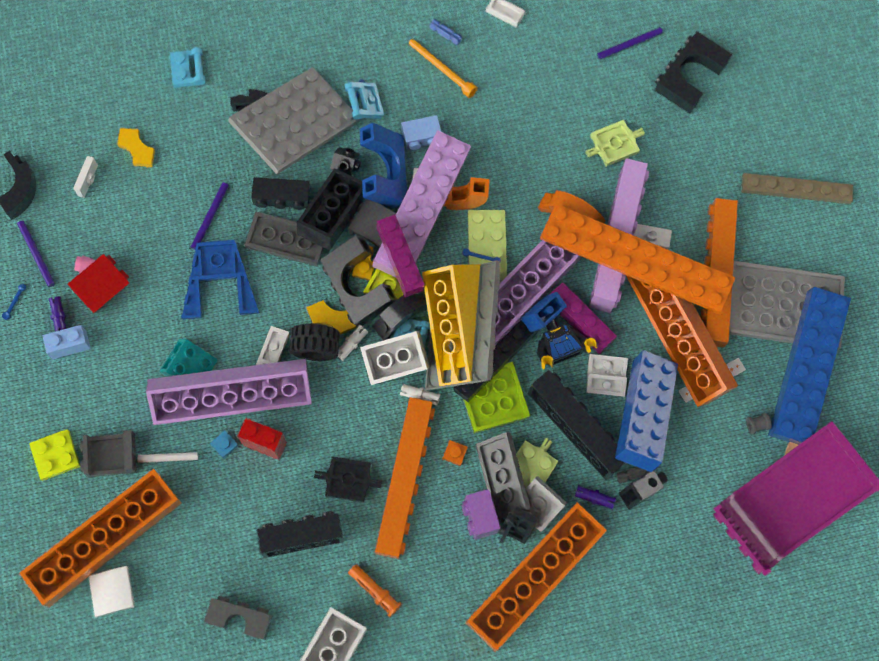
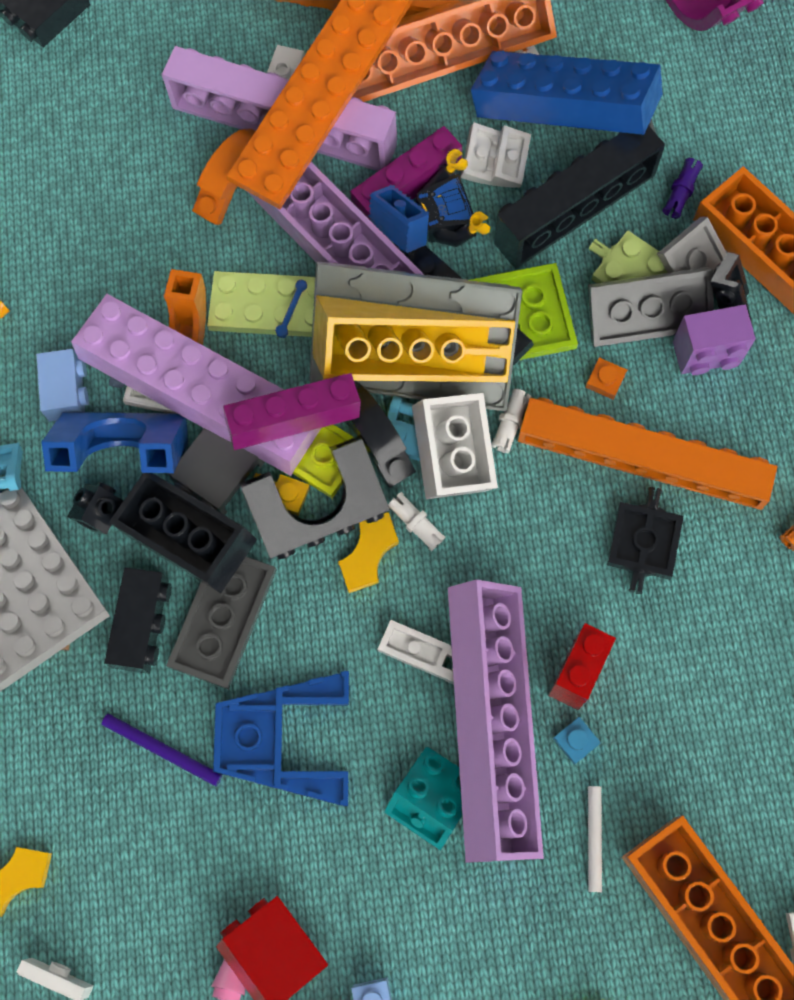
camera: 75 degrees left, 0 degrees up
(108, 454) = (587, 945): dark grey panel -> none
(300, 535) = (742, 614): black brick -> none
(314, 342) = (418, 572): black tyre -> none
(615, 143) = (123, 105): yellowish green plate -> none
(642, 489) = (679, 122): black torso -> none

